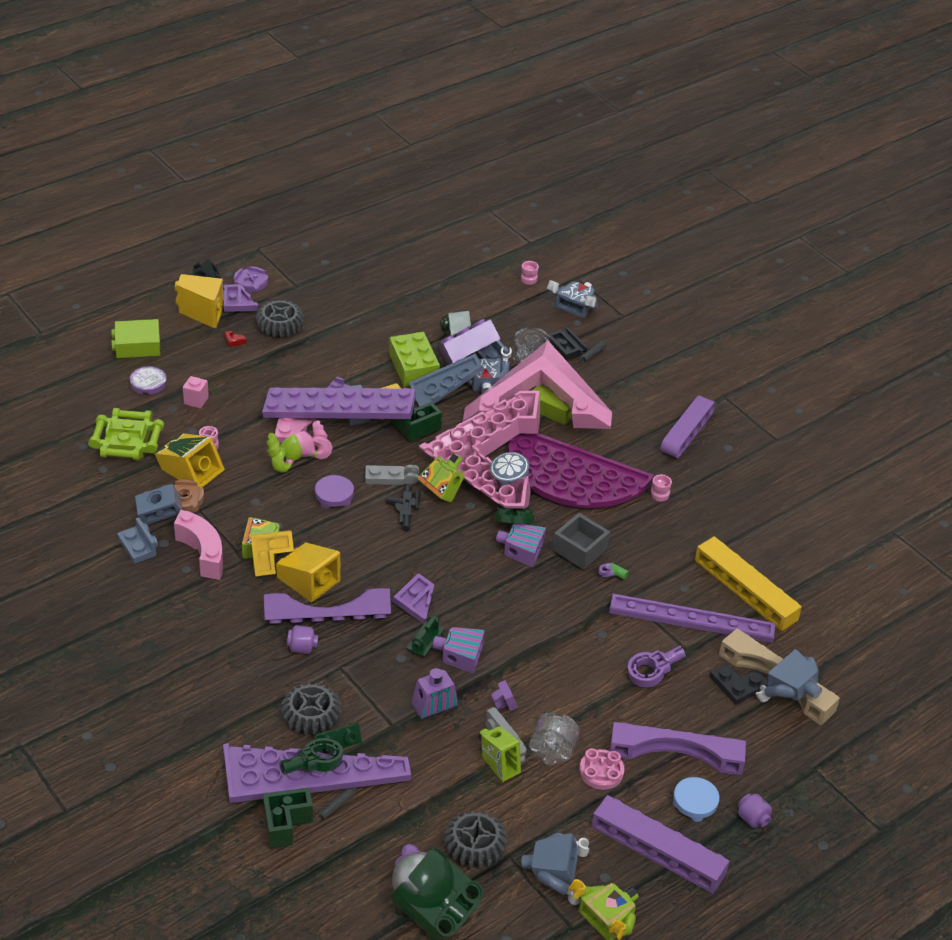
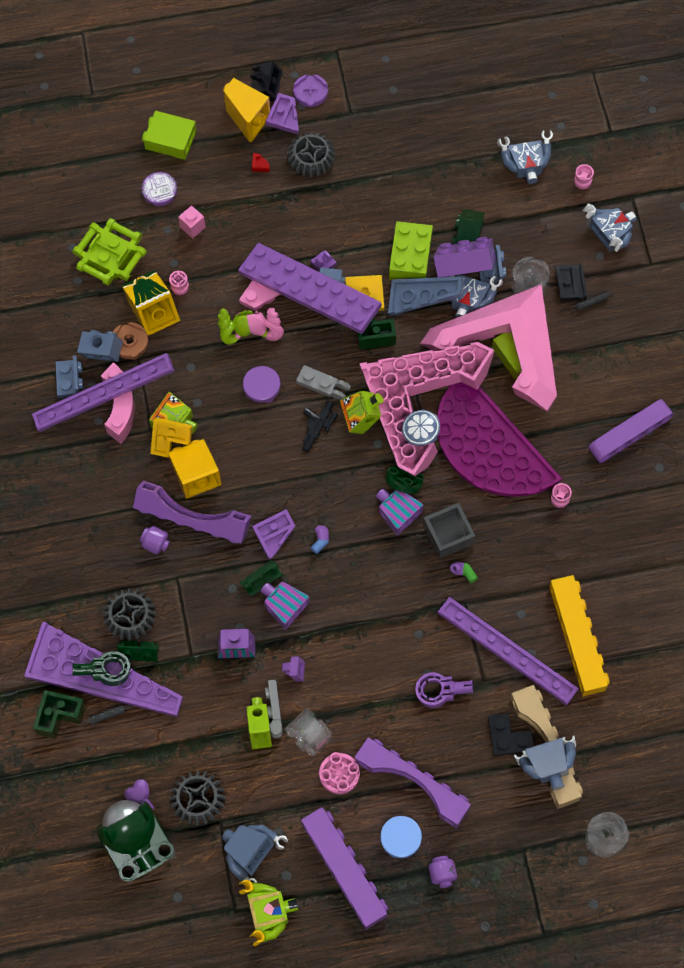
camera: 30 degrees right, 25 degrees up
(183, 535) = (103, 392): none -> medium lavender tile
(466, 589) = (323, 539): none -> arm
(472, 273) = (526, 158): none -> sand blue torso
(882, 722) = (617, 837): none -> clear brick

